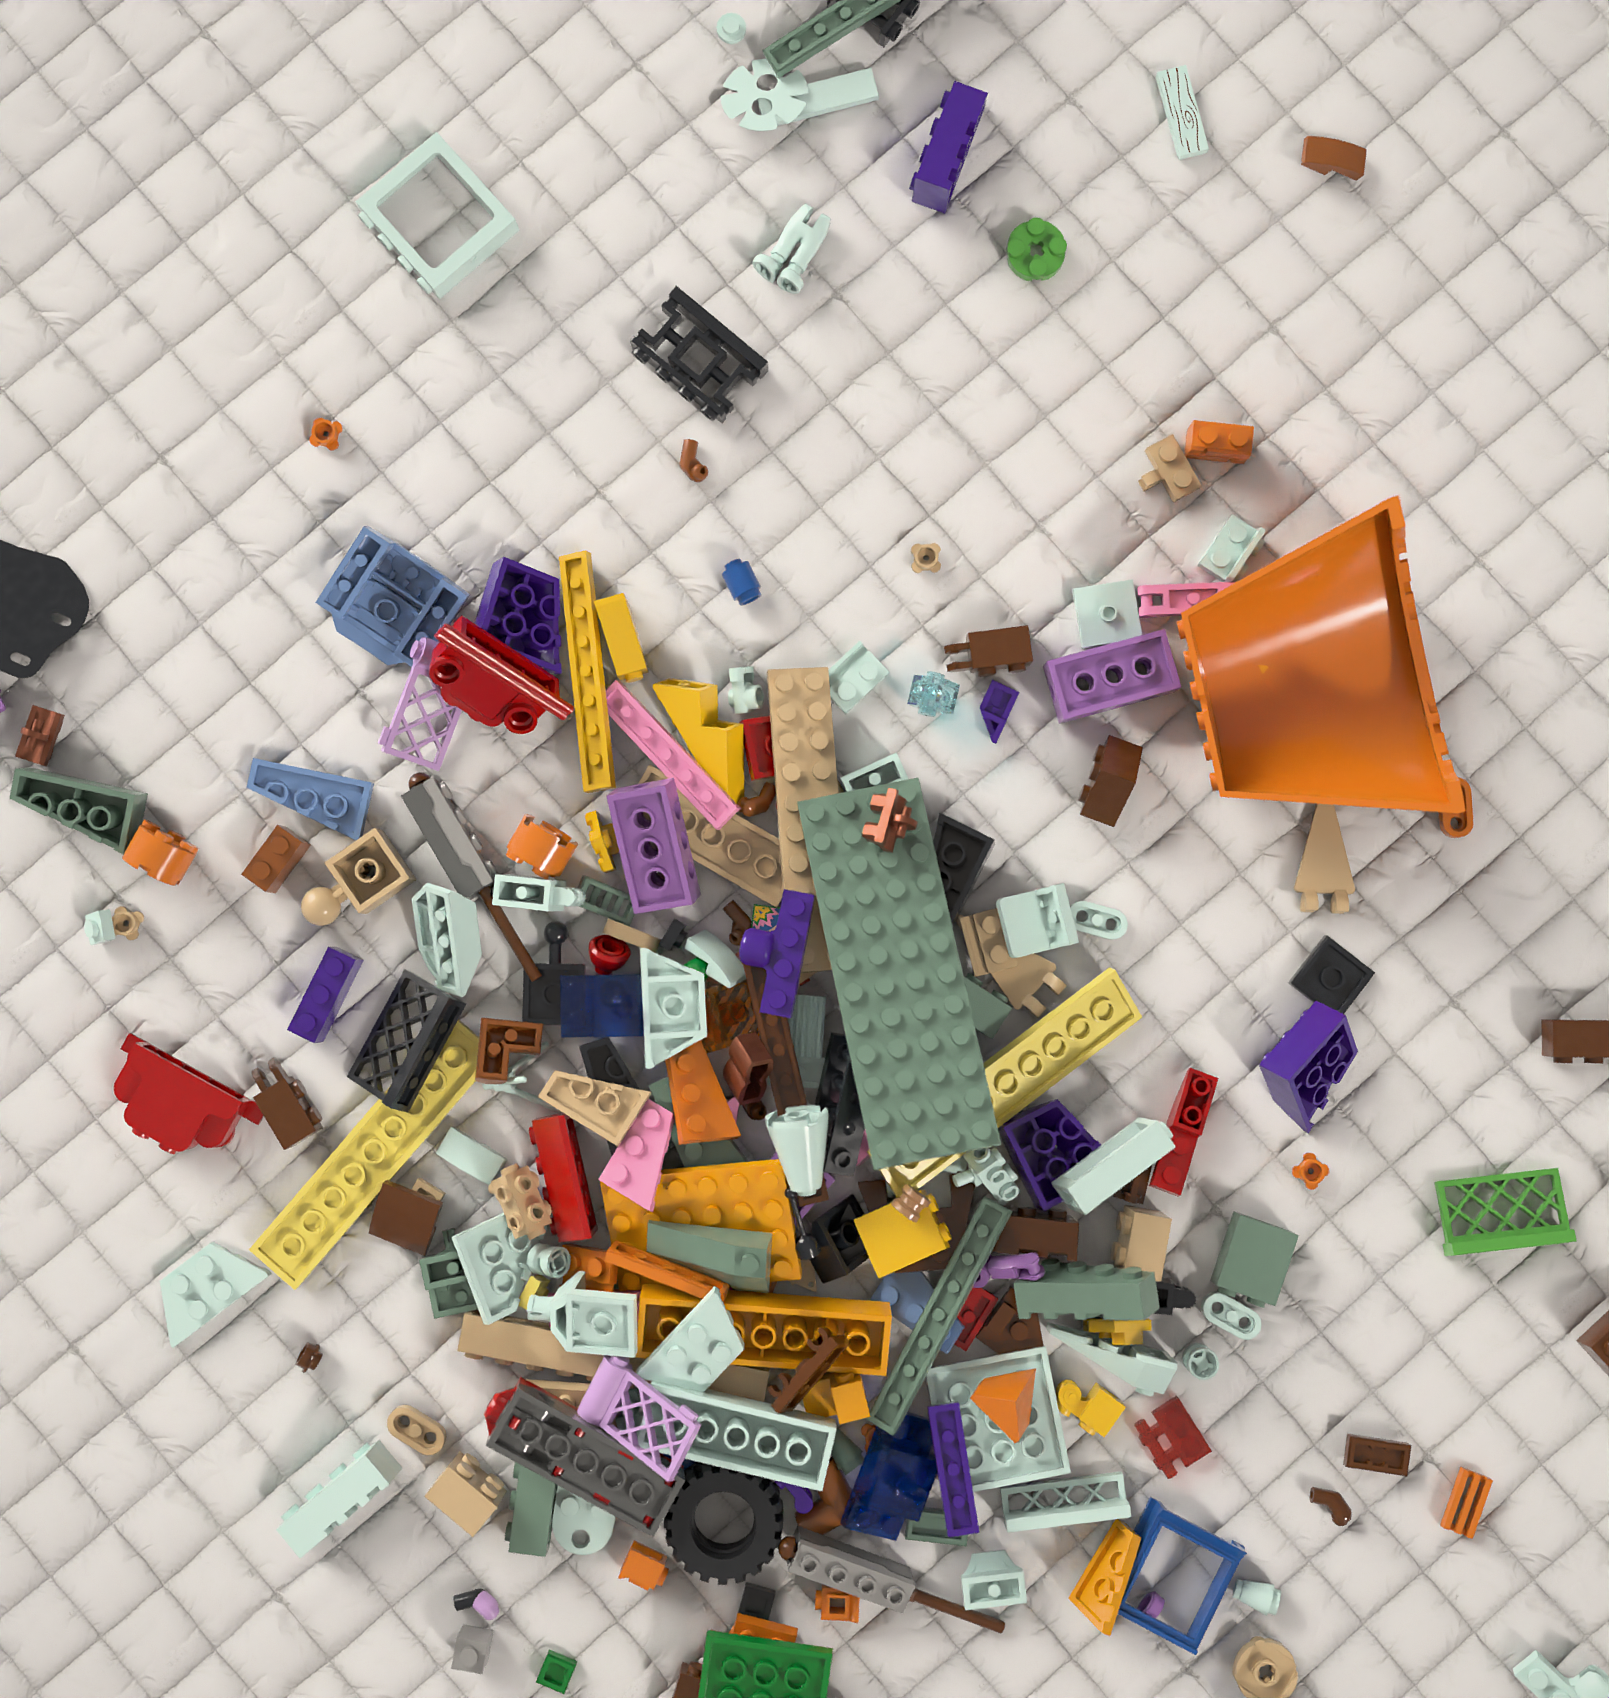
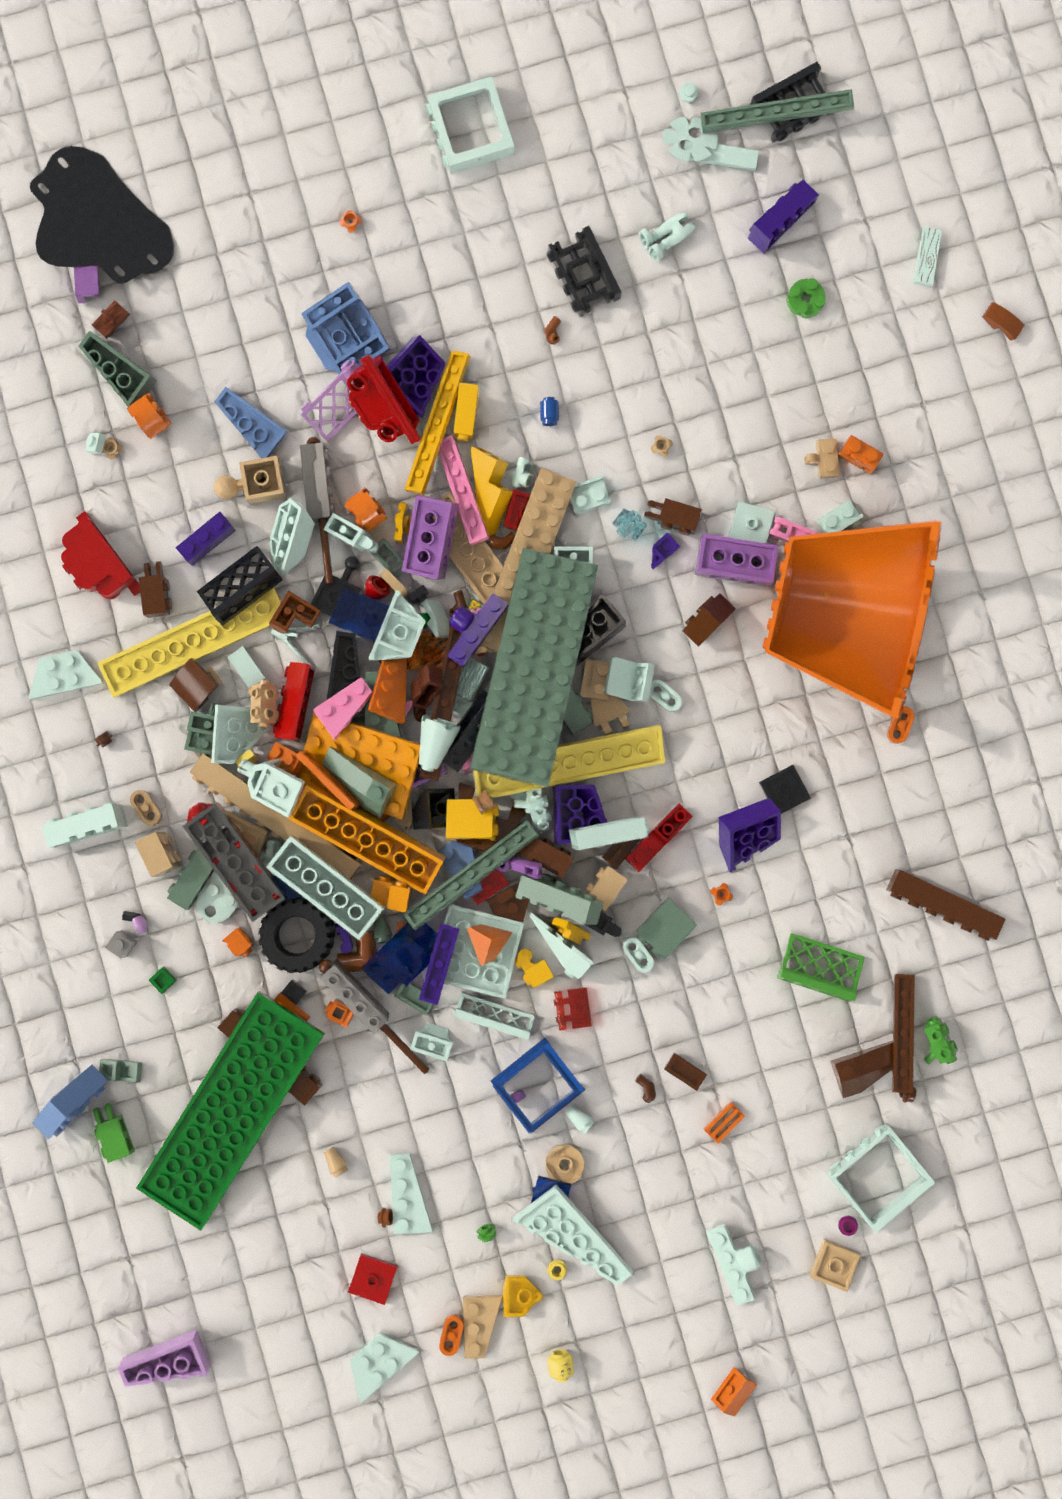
camera: 20 degrees right, 0 degrees up
(276, 859) = (212, 449): dark orange brick -> none
(548, 1260) = (264, 745): light aqua wheel -> none
(596, 1104) = (331, 667): tan wing -> none
(610, 1391) = (266, 830): lavender piece -> none
(696, 1348) = (325, 828): light aqua wing -> none
(806, 1243) = (414, 800): black hinge -> none
(808, 1371) = (382, 870): reddish brown plate -> none
(893, 821) = (571, 581): copper hips -> none
(1106, 1577) = (499, 1067): light orange wing -> none
(1206, 1364) = (606, 974): light aqua wheel -> none
(1324, 864) = (811, 722): tan flag -> none

